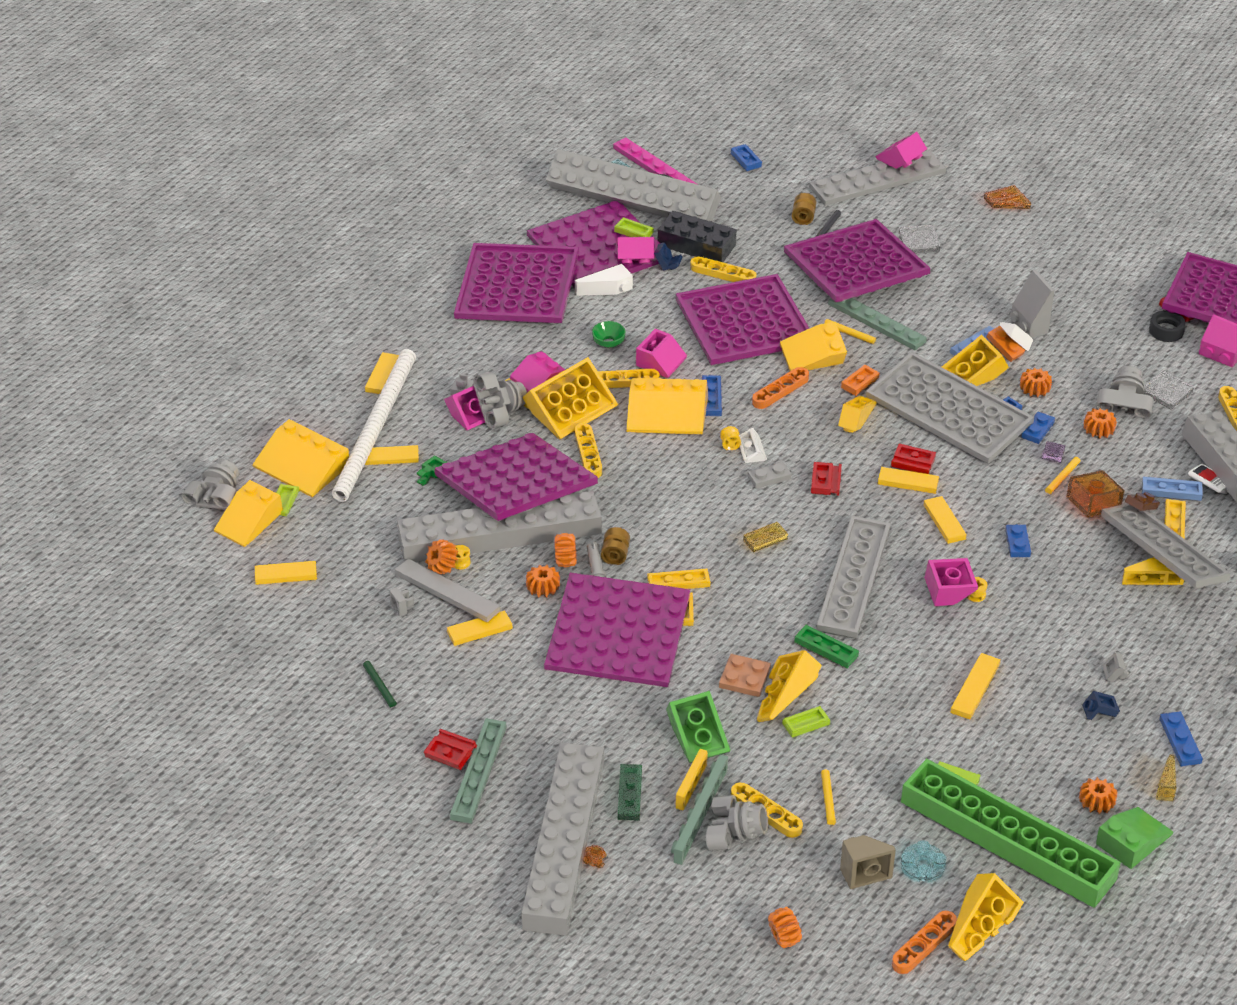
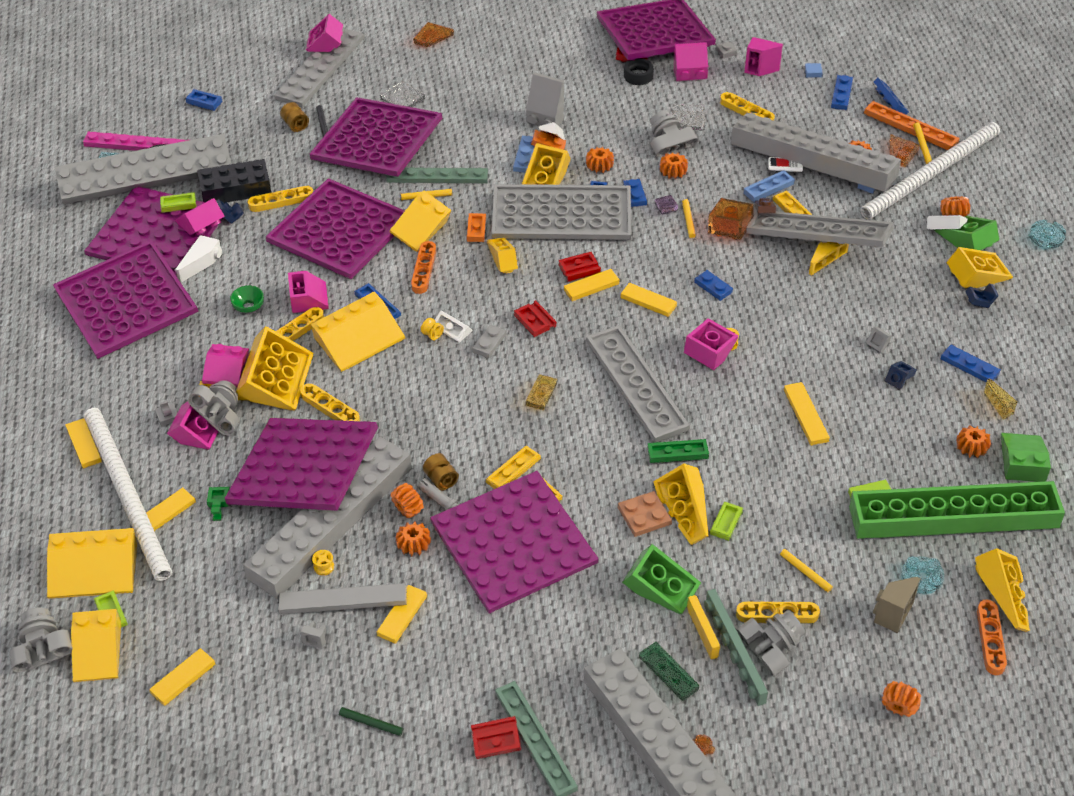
camera: 40 degrees left, 5 degrees up
(441, 556) = (319, 568): orange gear -> none

